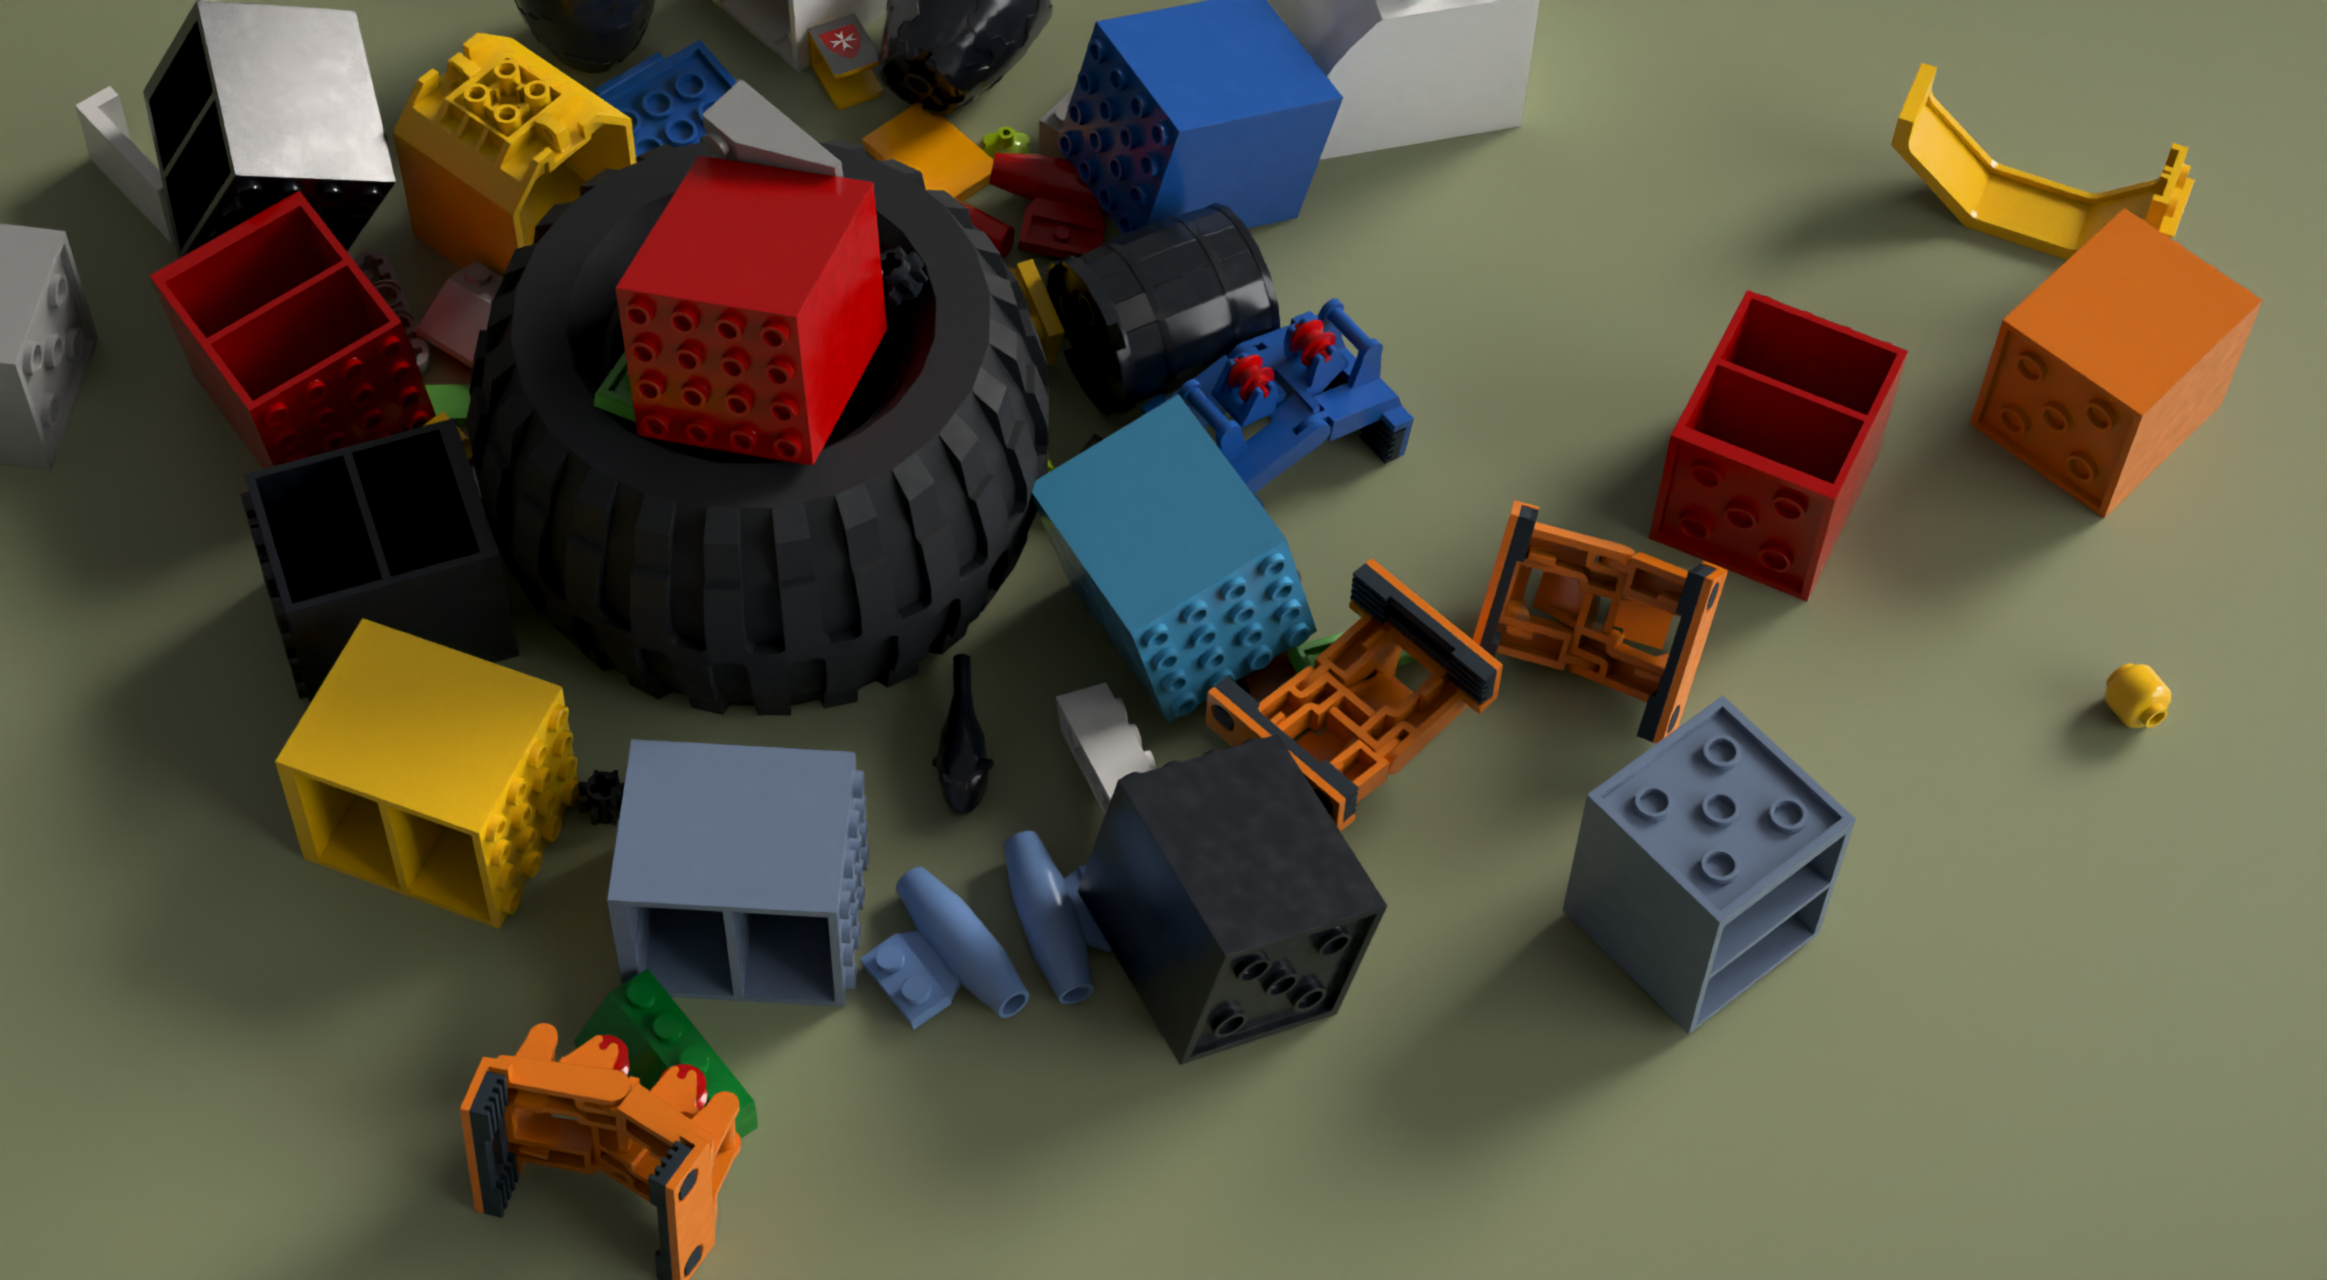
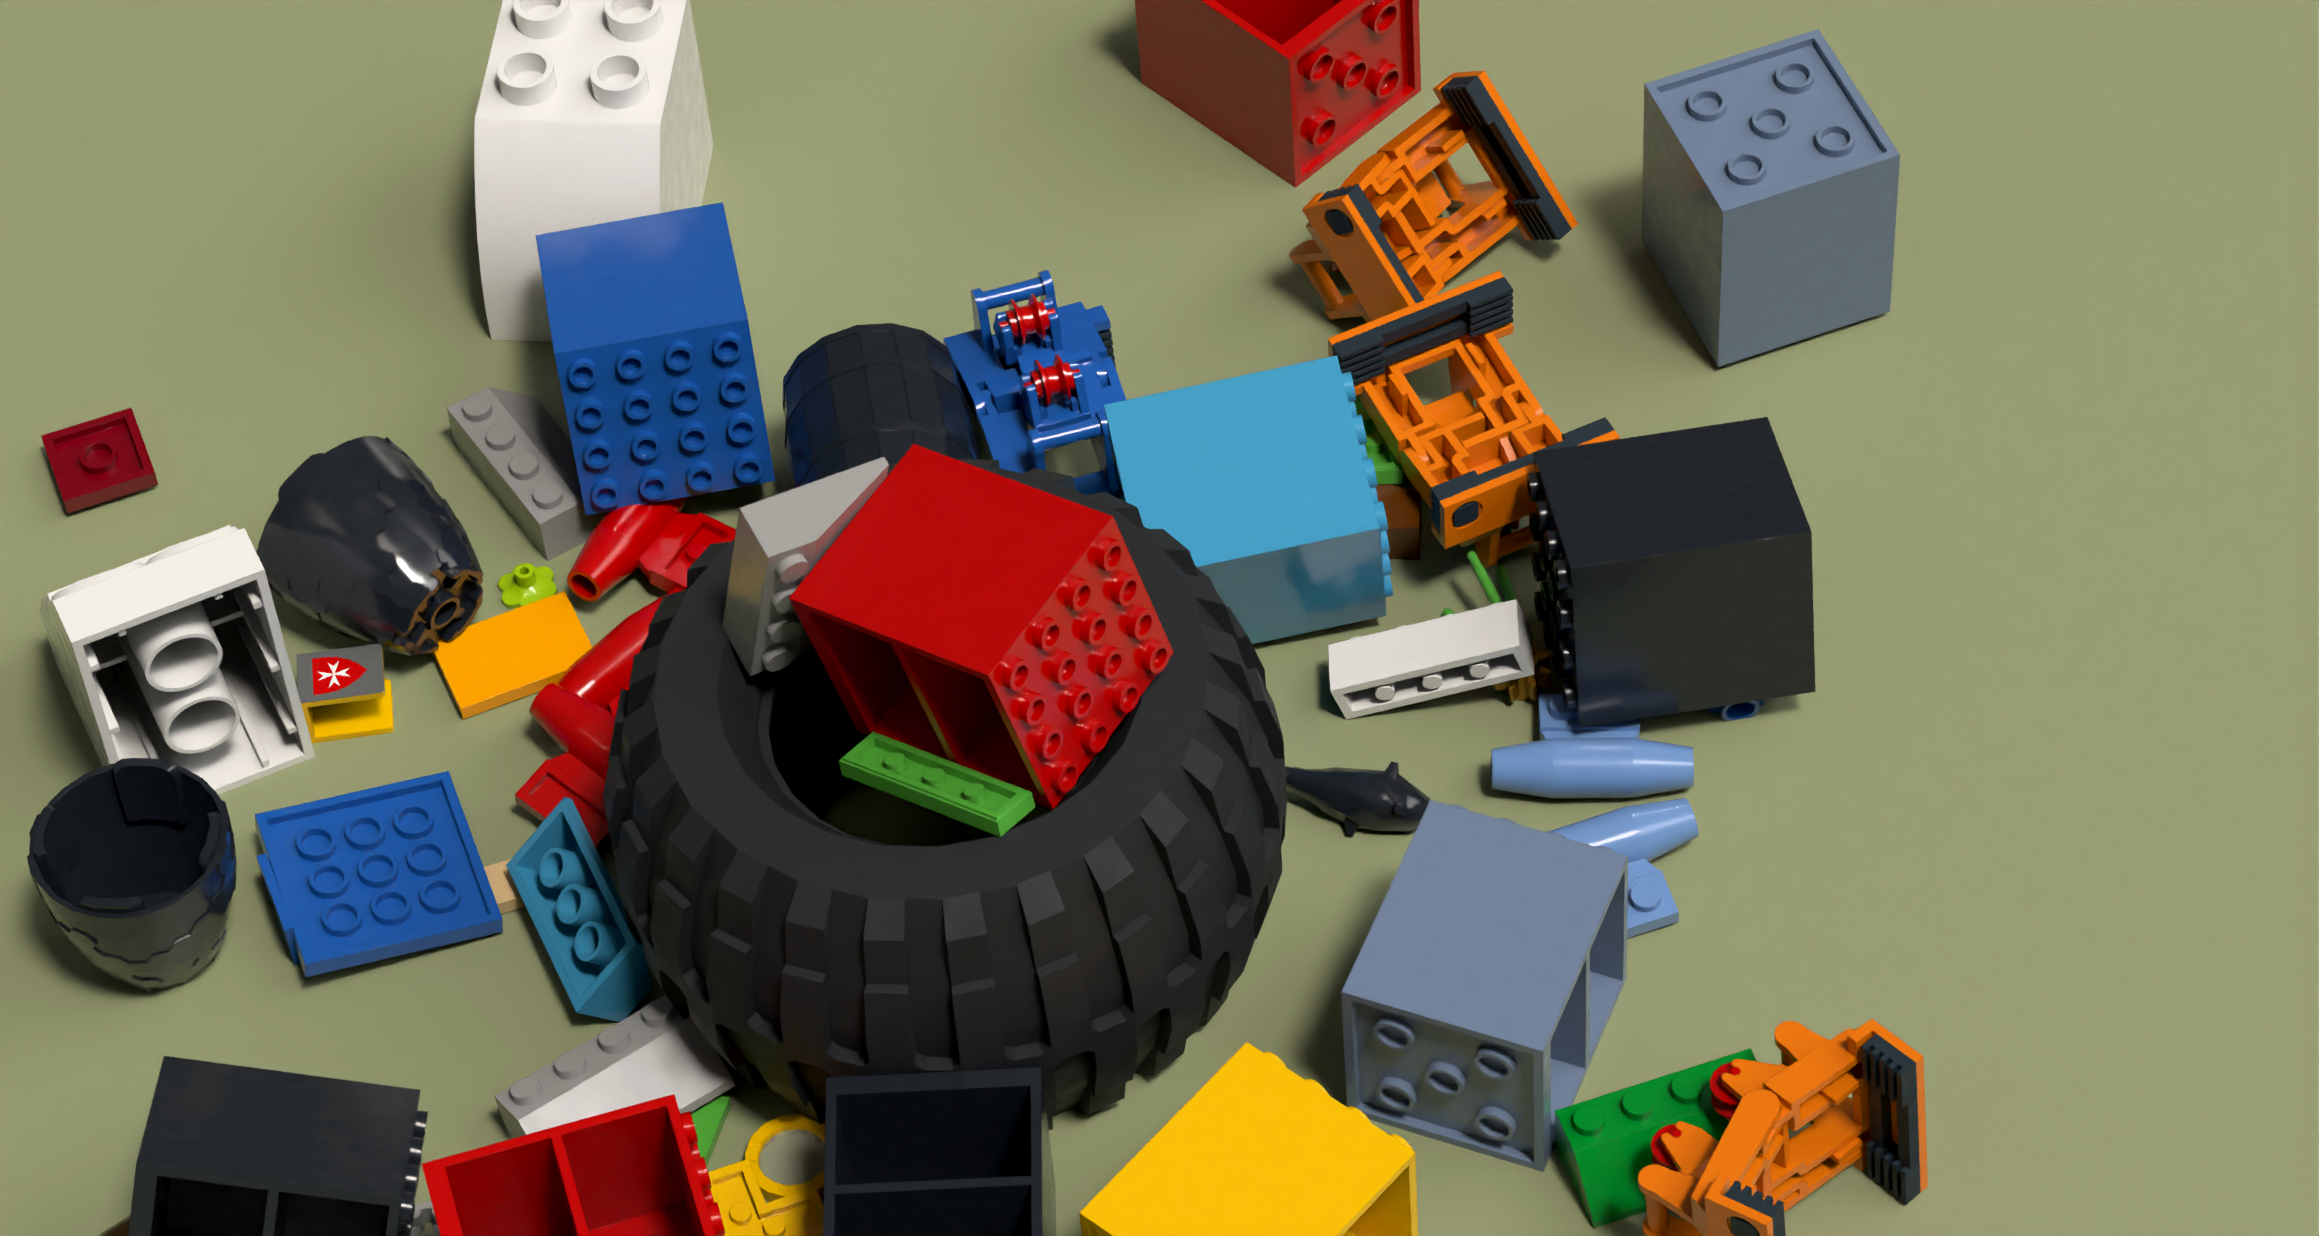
camera: 65 degrees left, 5 degrees down
(498, 148) = (415, 988): yellow container -> none

